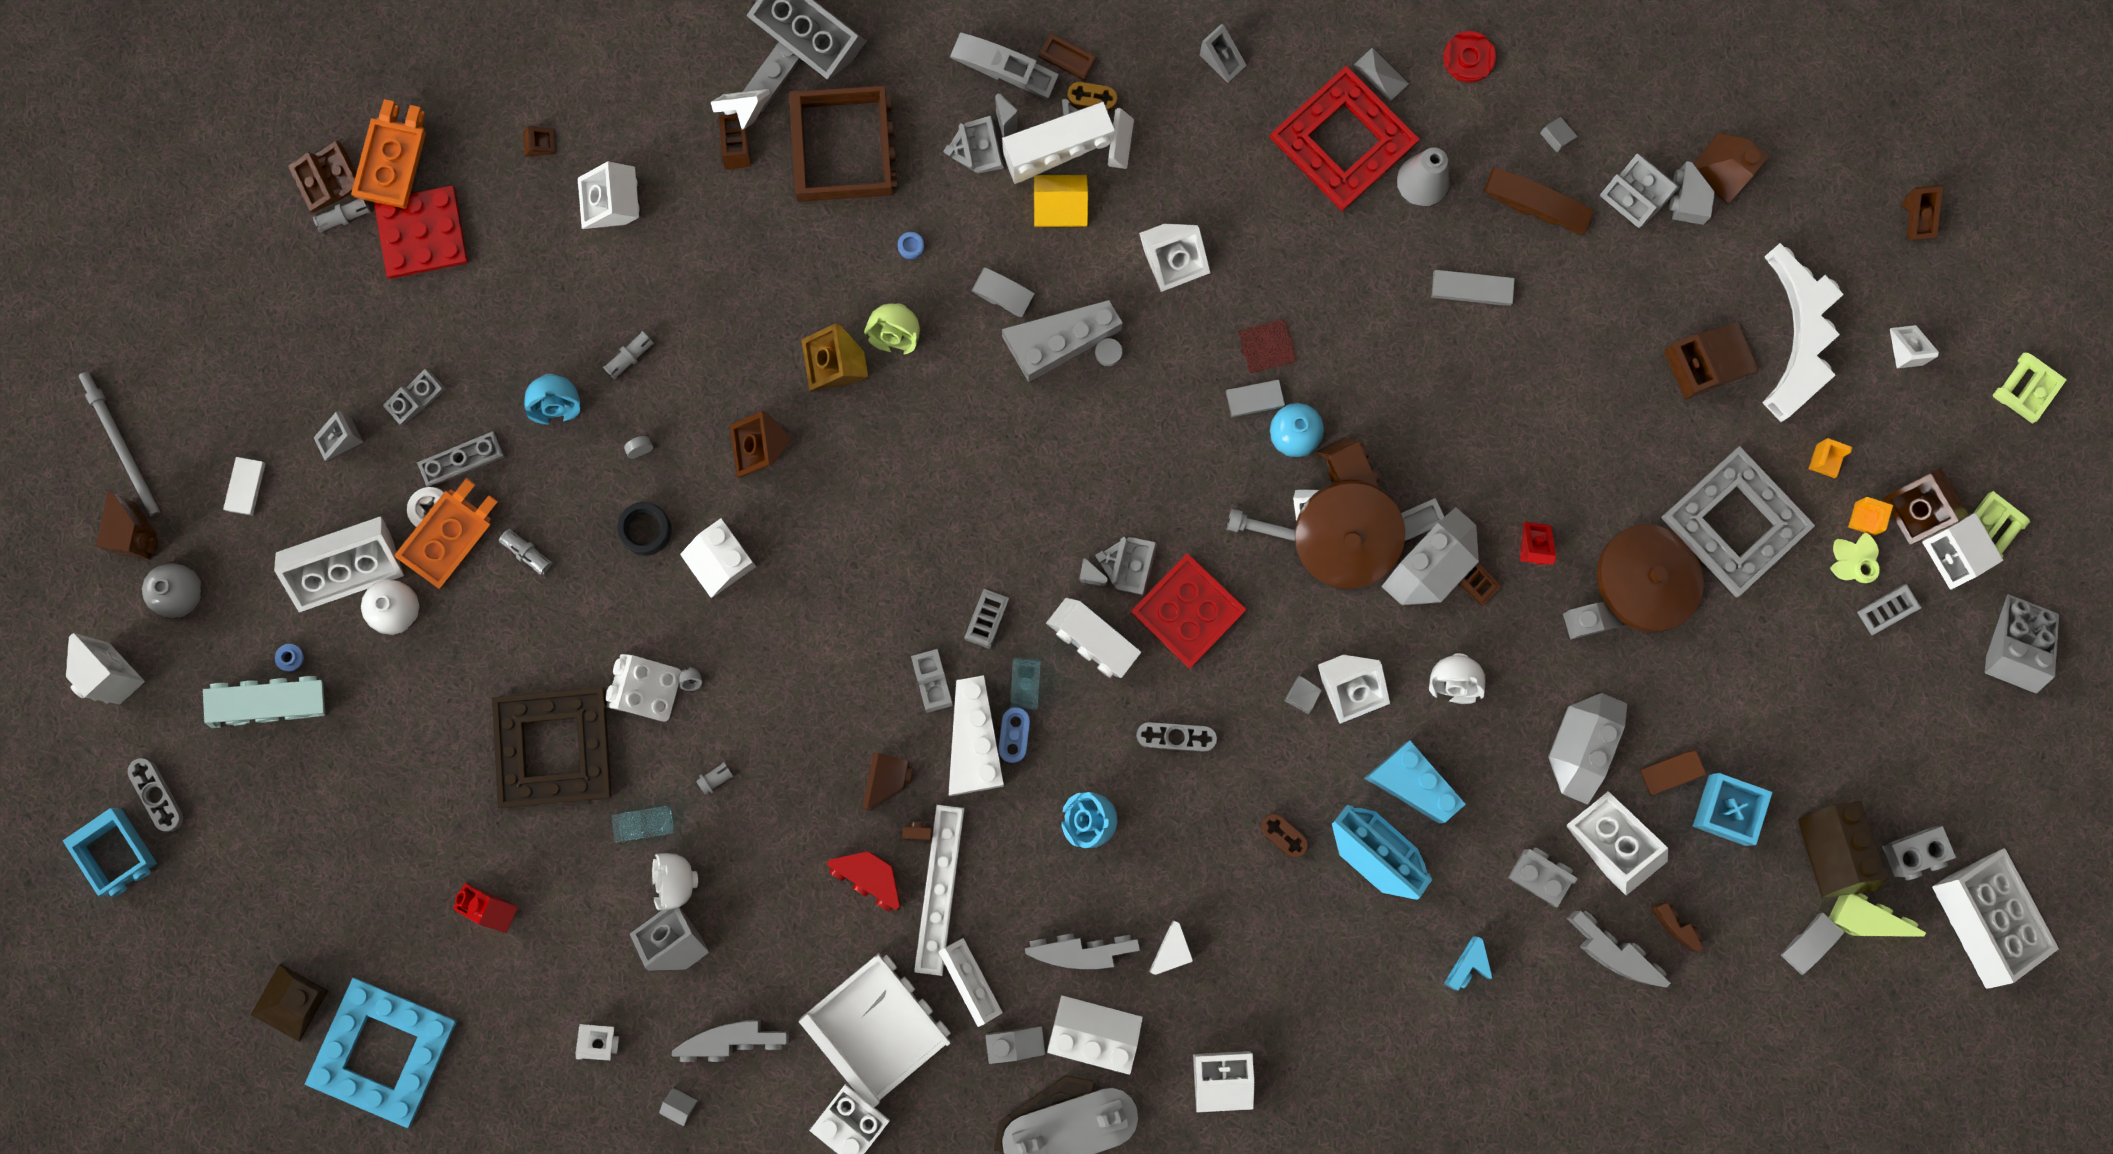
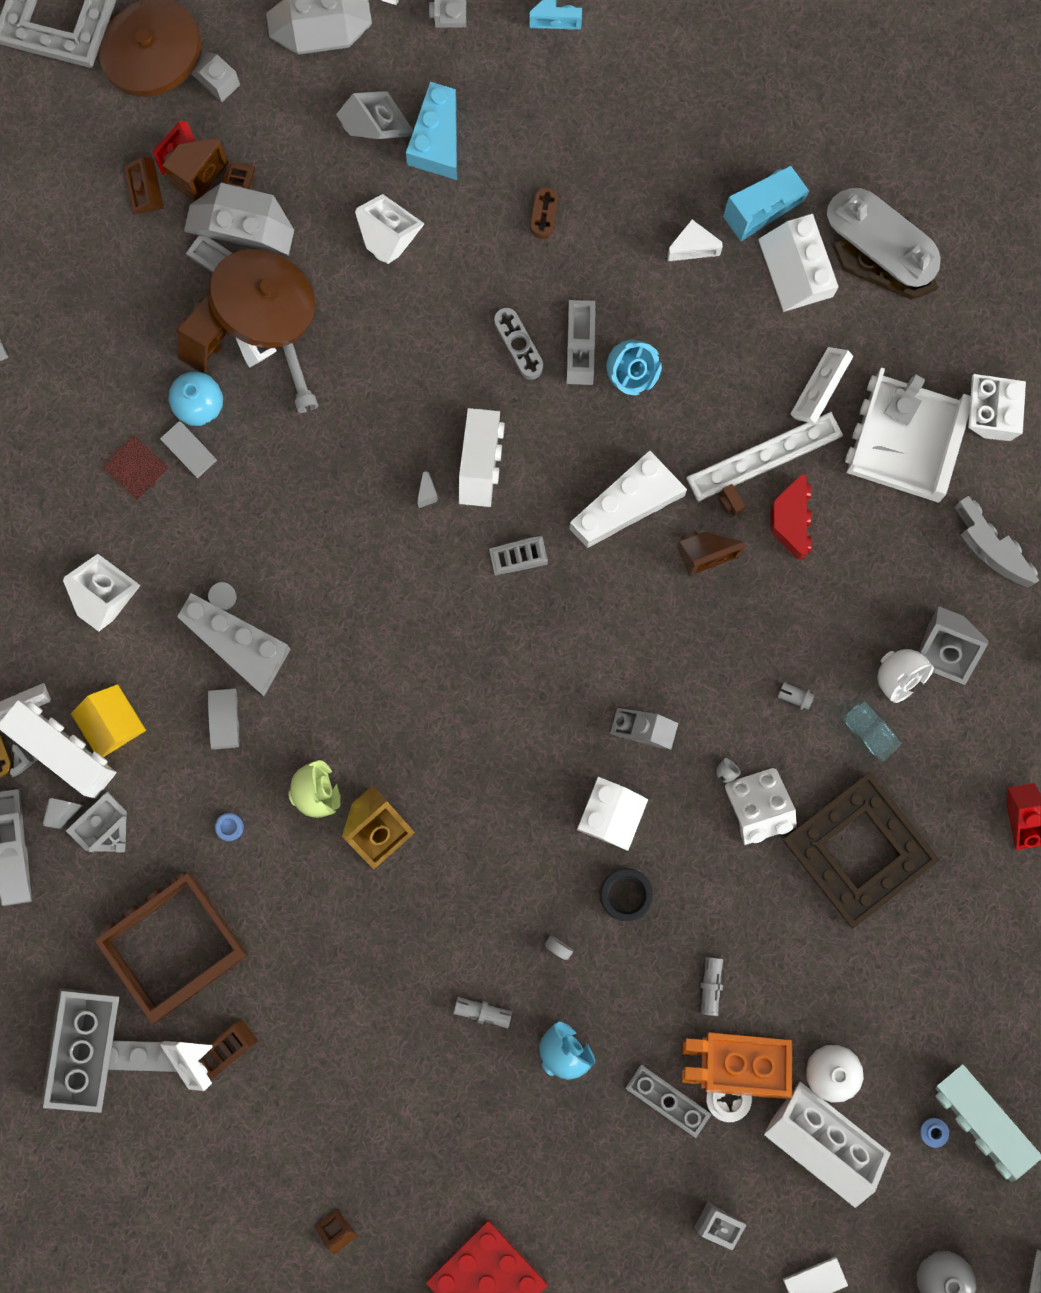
camera: 120 degrees left, 0 degrees up
(415, 397) = (639, 1182): light grey slope -> none
(608, 196) = (349, 1129): white slope -> none
(756, 443) = (492, 843): reddish brown slope -> none
(770, 630) = (644, 728): none -> light grey slope
(905, 1044) = (904, 403): none -> light grey plate
(931, 681) = (599, 569): light grey slope -> none
(1014, 735) = (599, 471): medium blue plate -> none
(1015, 1044) = (848, 321): light grey slope -> none
(1025, 683) = (553, 487): clear light blue slope -> none
(1069, 951) = (747, 319): light grey slope -> none
(1129, 564) = (398, 467): light grey slope -> none
(1143, 792) = (581, 342): none -> light grey slope
(1171, 1043) = (764, 202): none -> medium azure wedge
(1188, 611) = (407, 395): red plate -> none
(1224, 1081) = (765, 145): white slope -> none
(1303, 695) = (419, 264): light grey slope -> none
(1380, 853) = (511, 125): medium azure wedge -> none
(1462, 677) = (326, 146): white cylinder -> none
(1463, 737) = (373, 116): none -> light grey slope
(1507, 547) = (195, 166): none -> reddish brown slope
(1521, 499) = (143, 186): none -> reddish brown slope

